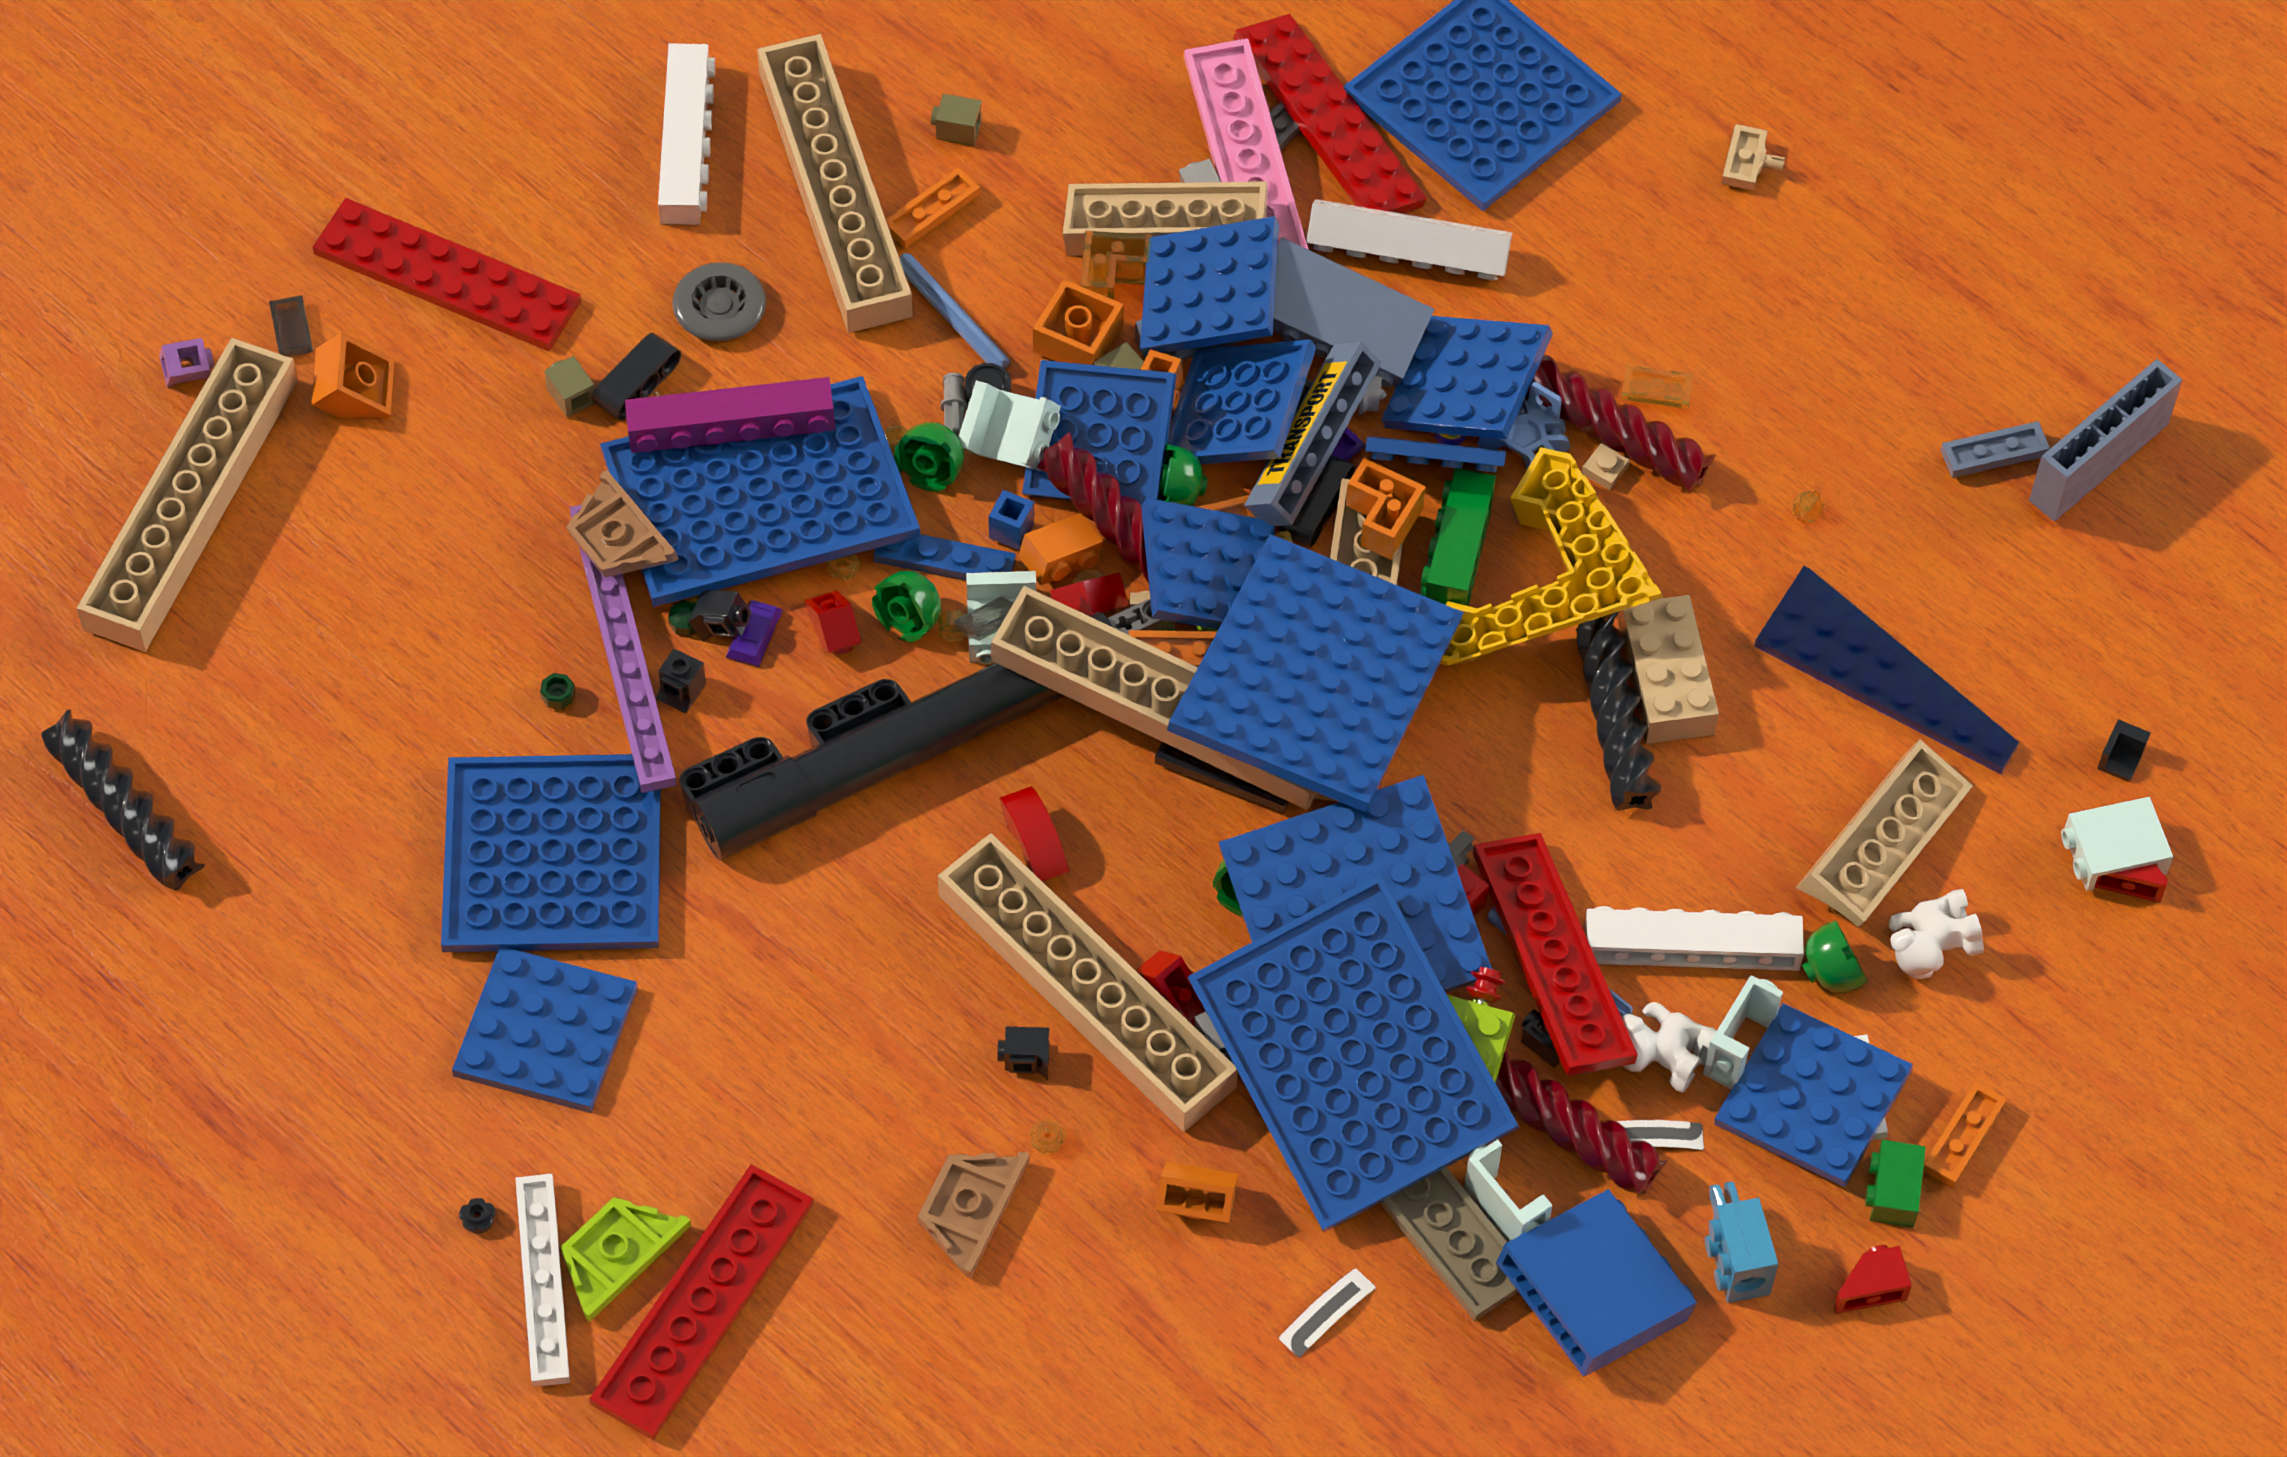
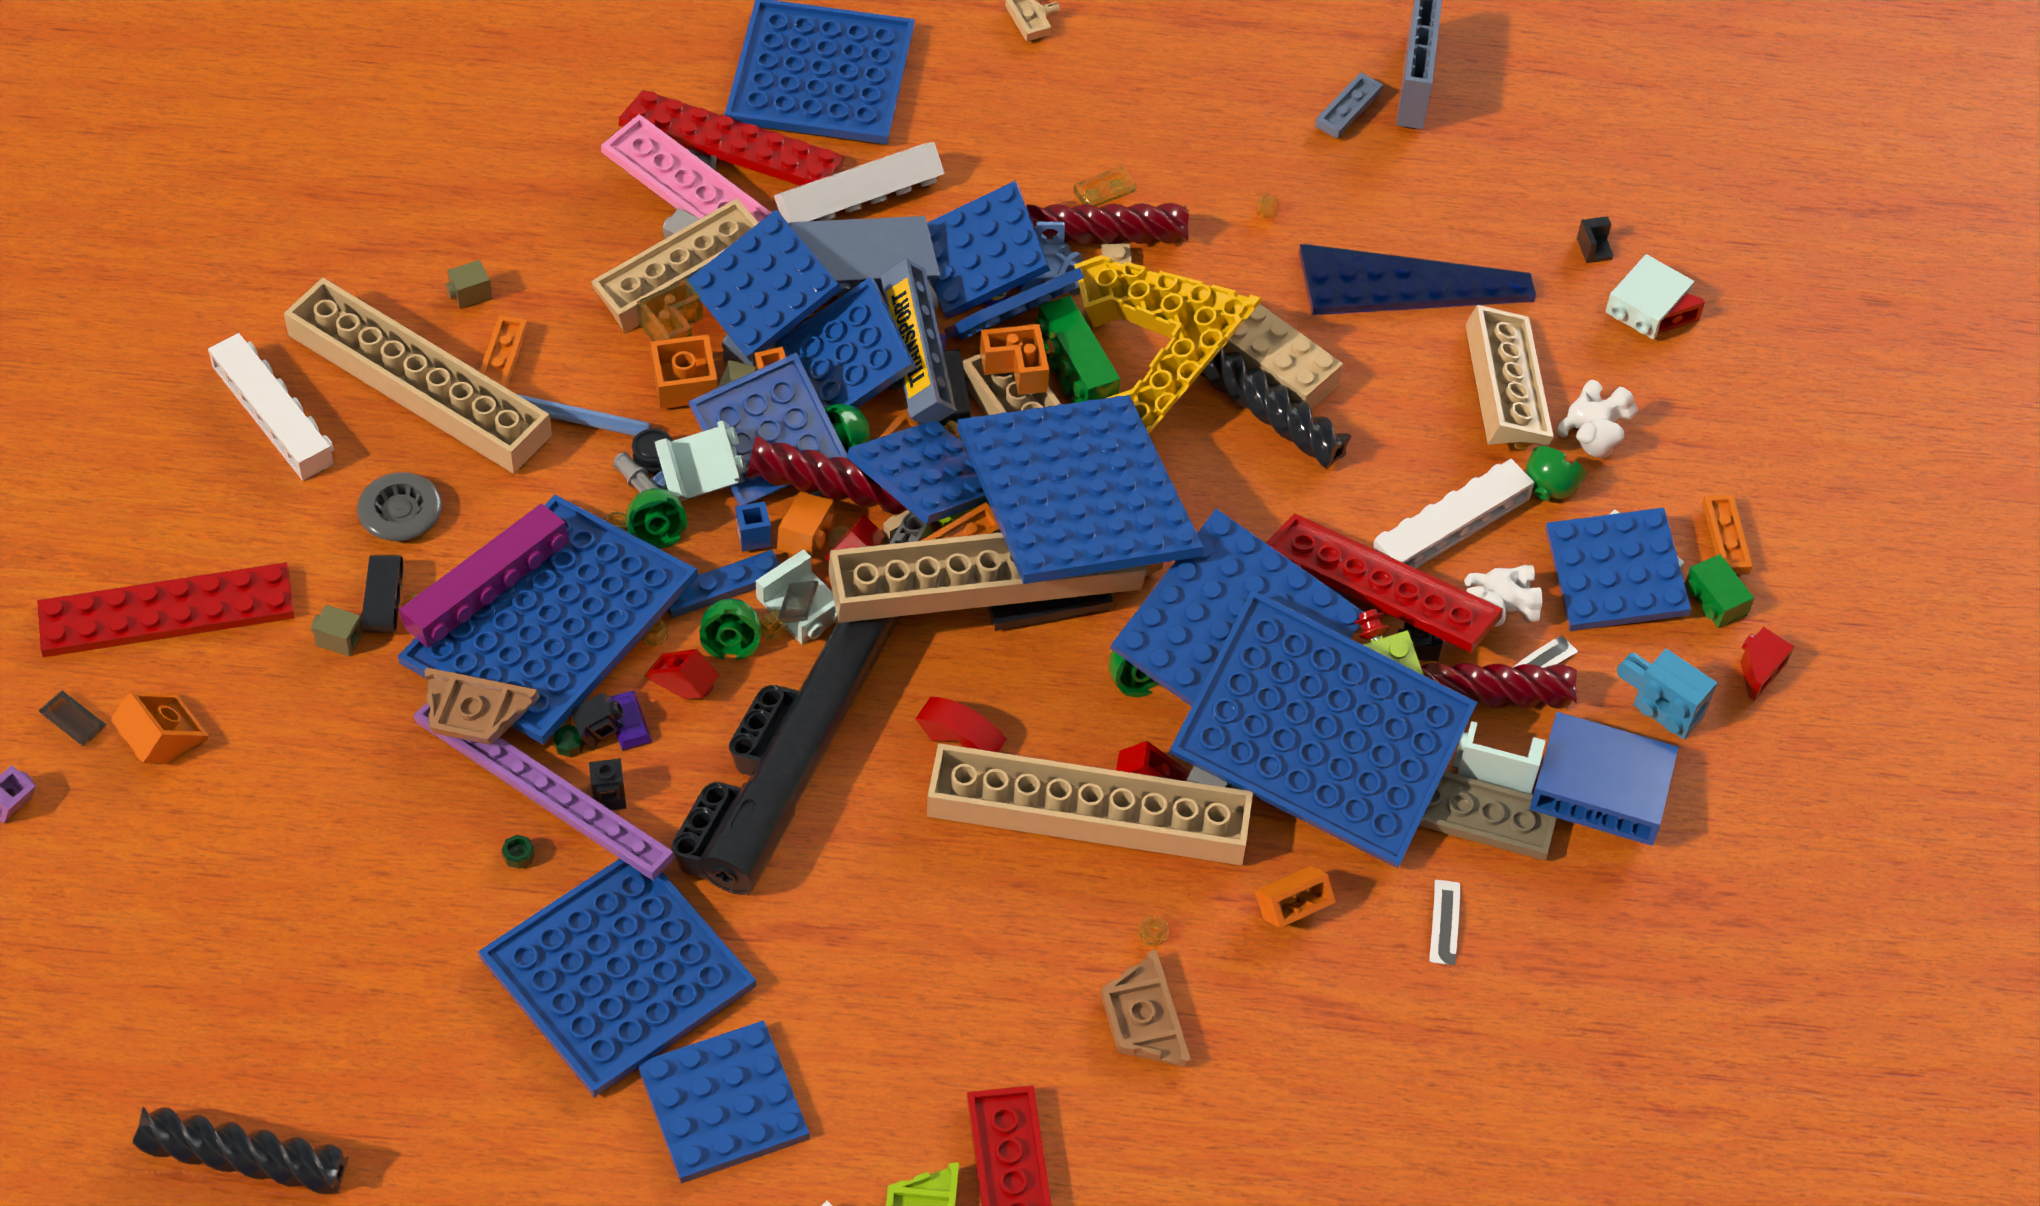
camera: 40 degrees left, 5 degrees down
(187, 495) = (98, 890): tan brick -> none
(1025, 1050) = (1089, 880): black window -> none
(1727, 1057) = (1550, 574): light aqua panel -> none

